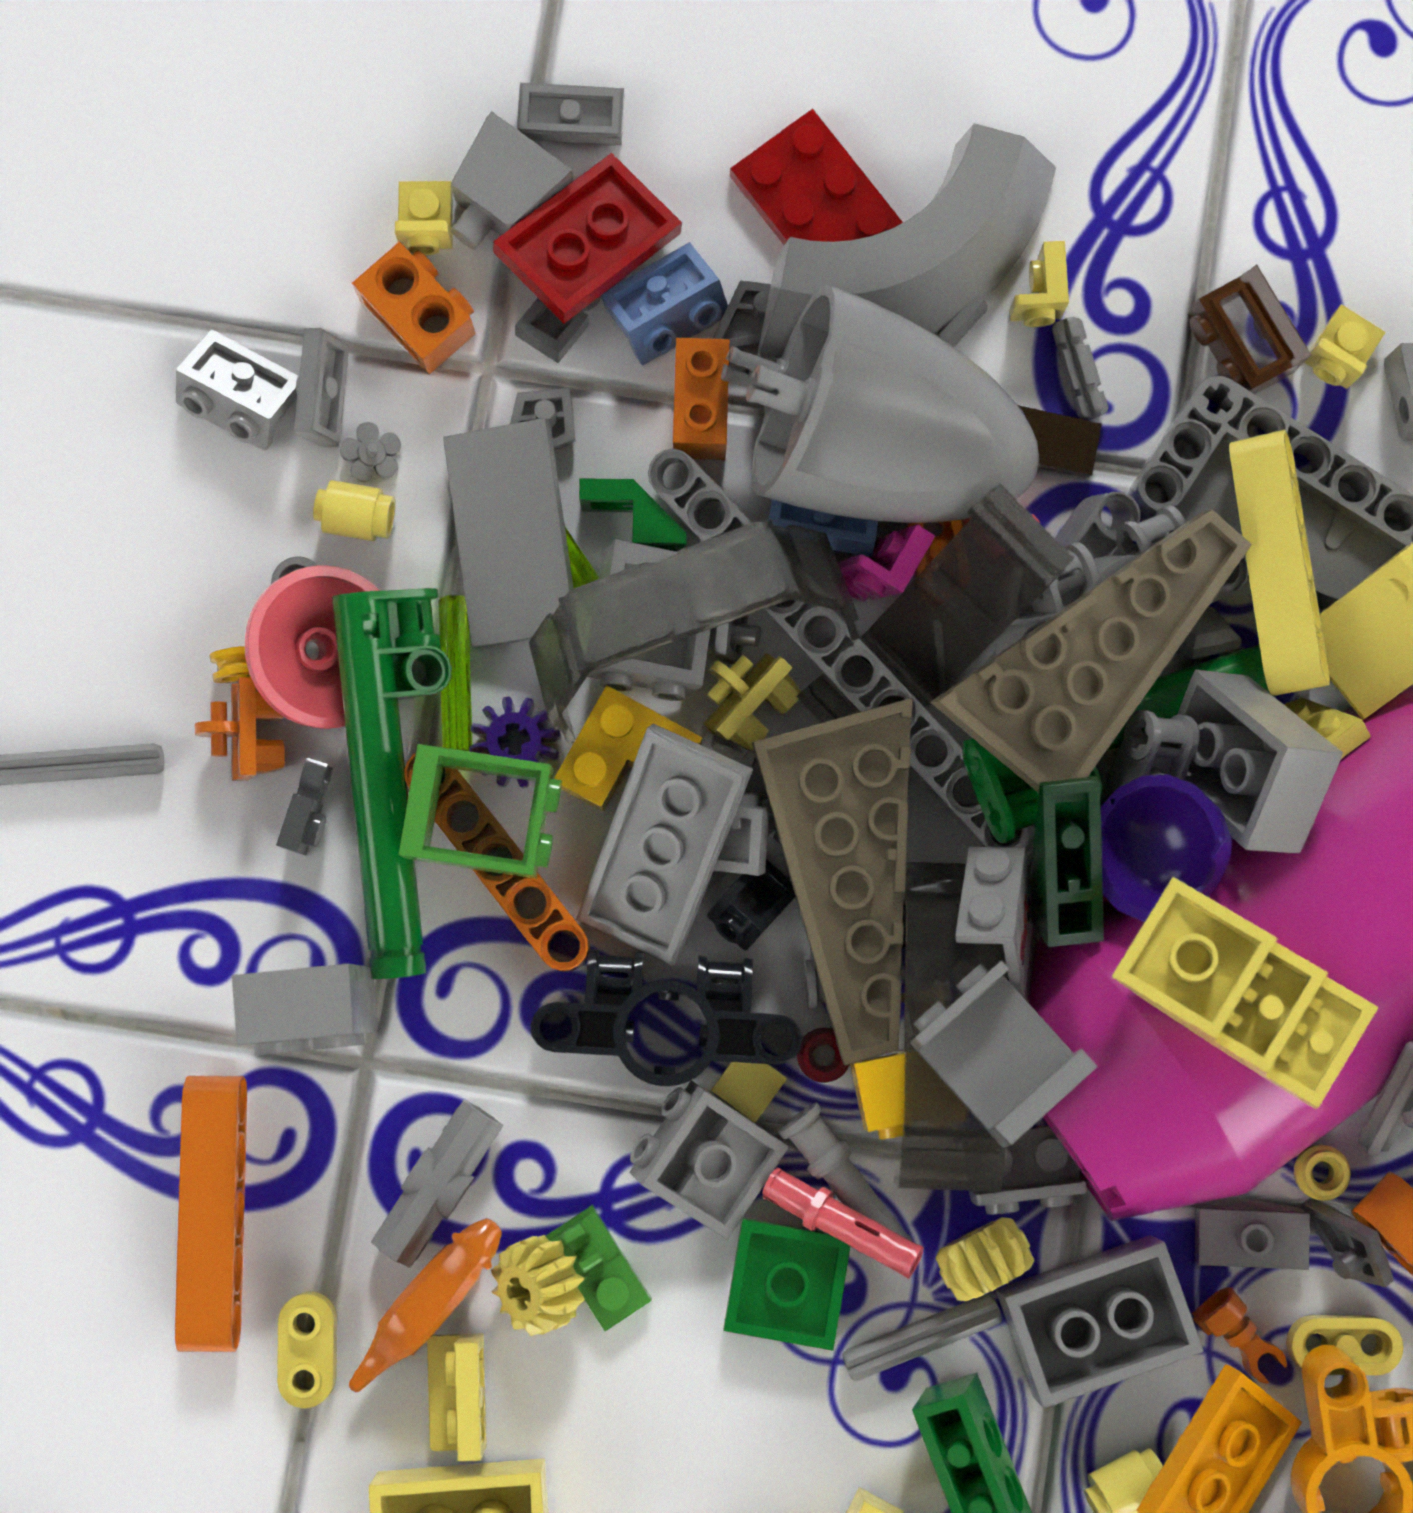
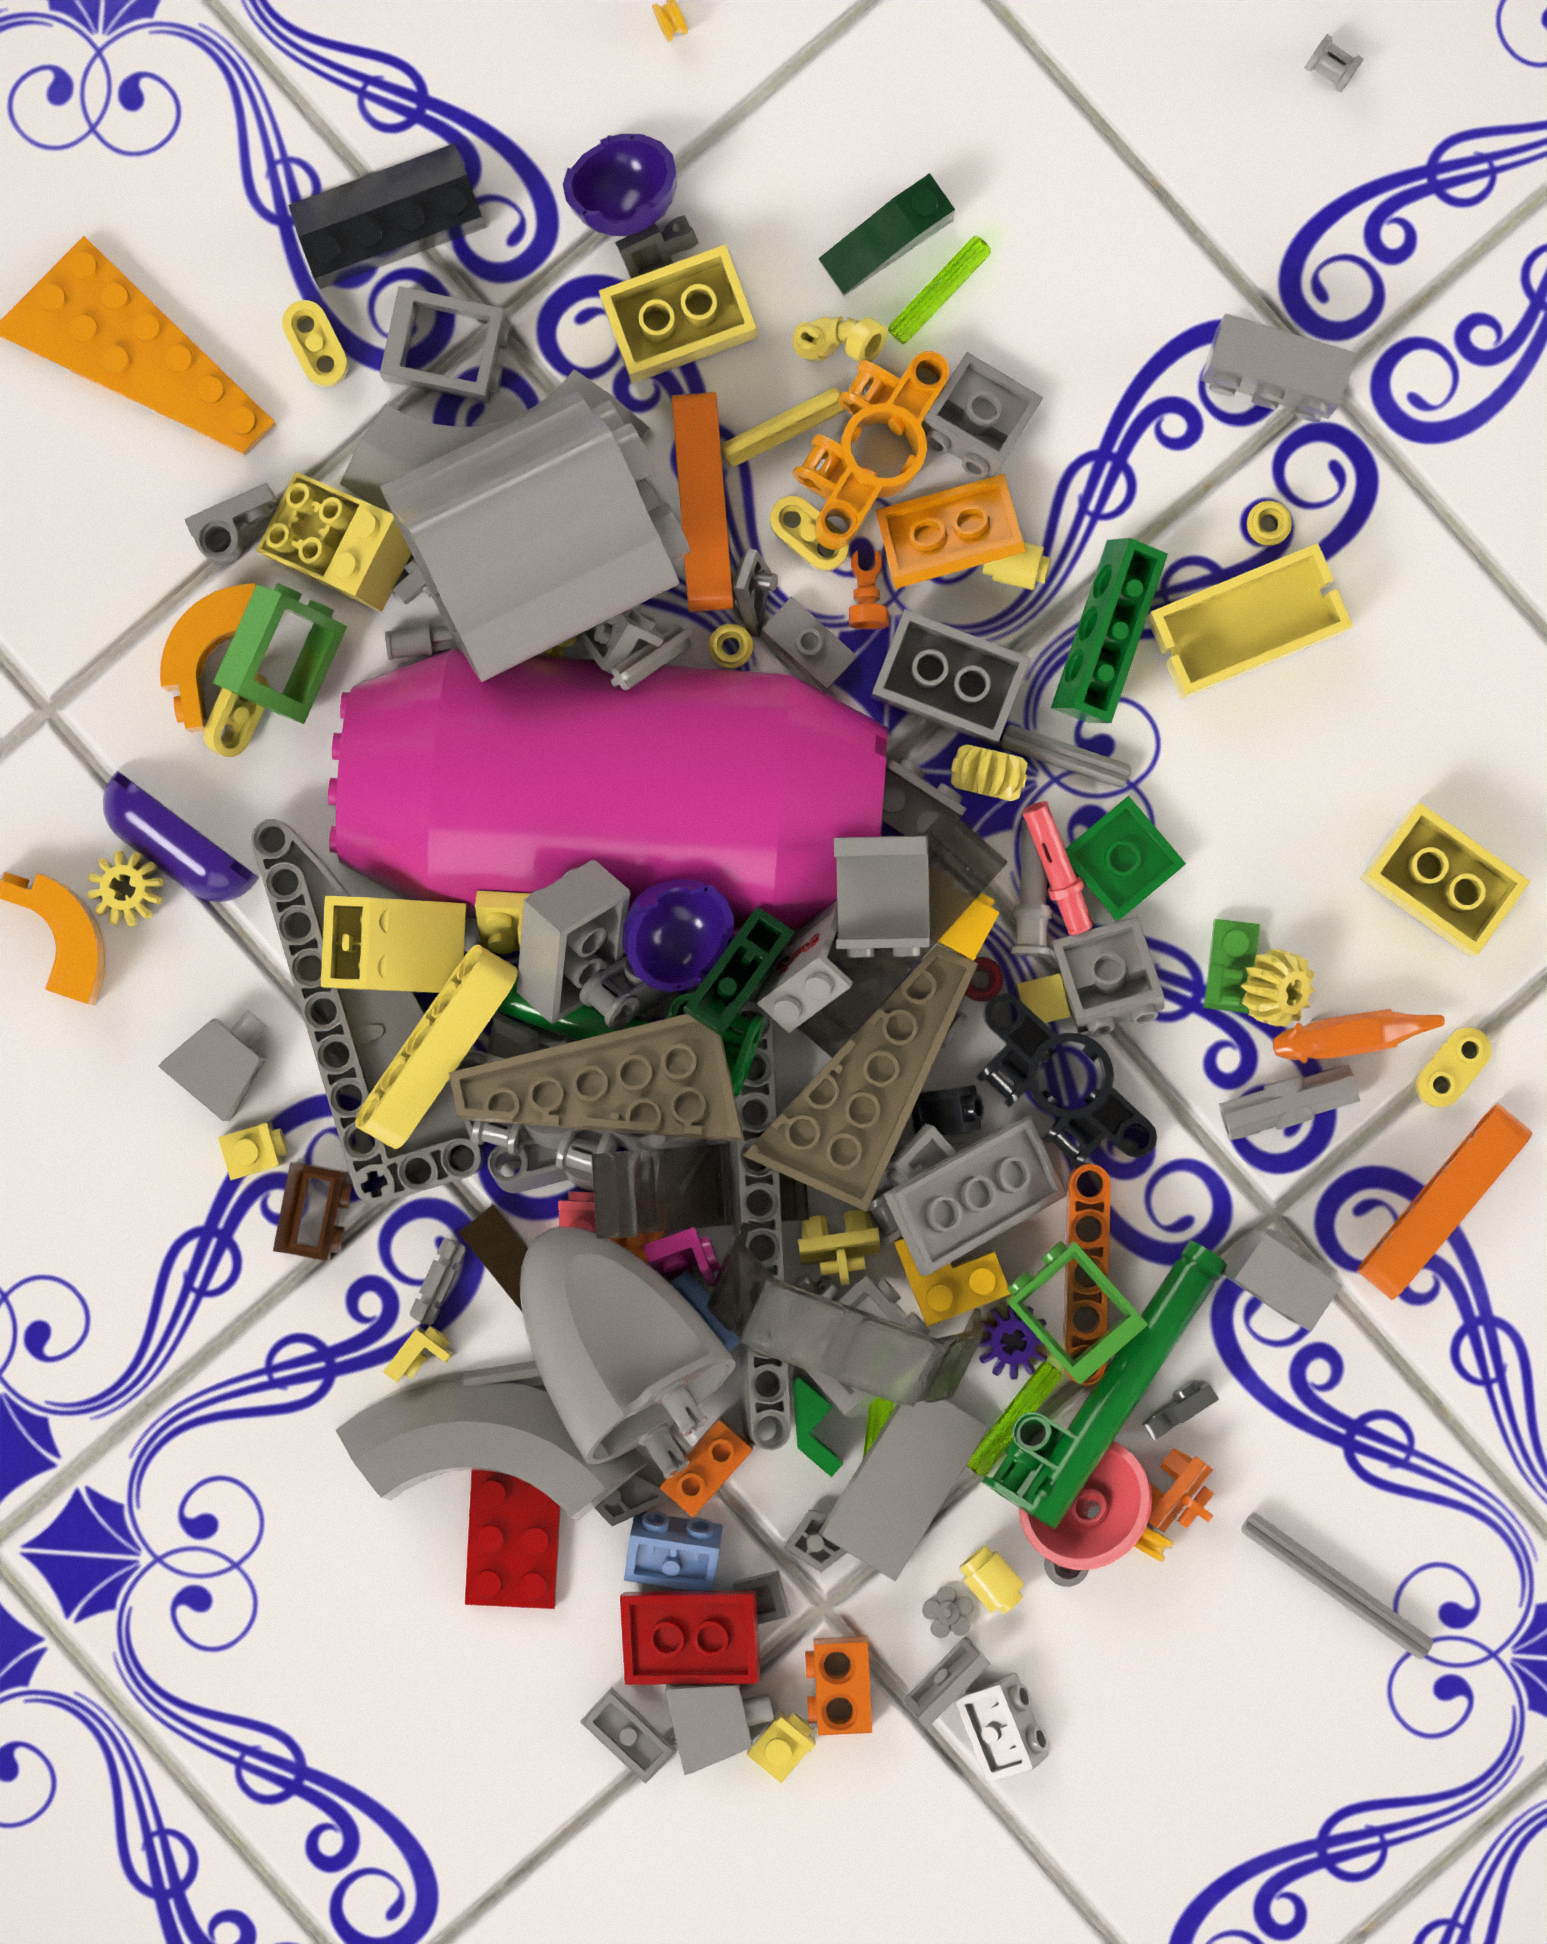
camera: 130 degrees left, 5 degrees up
(457, 1394) = (1381, 962): light yellow bracket -> none
(1244, 992) = (707, 807): light yellow slope -> none

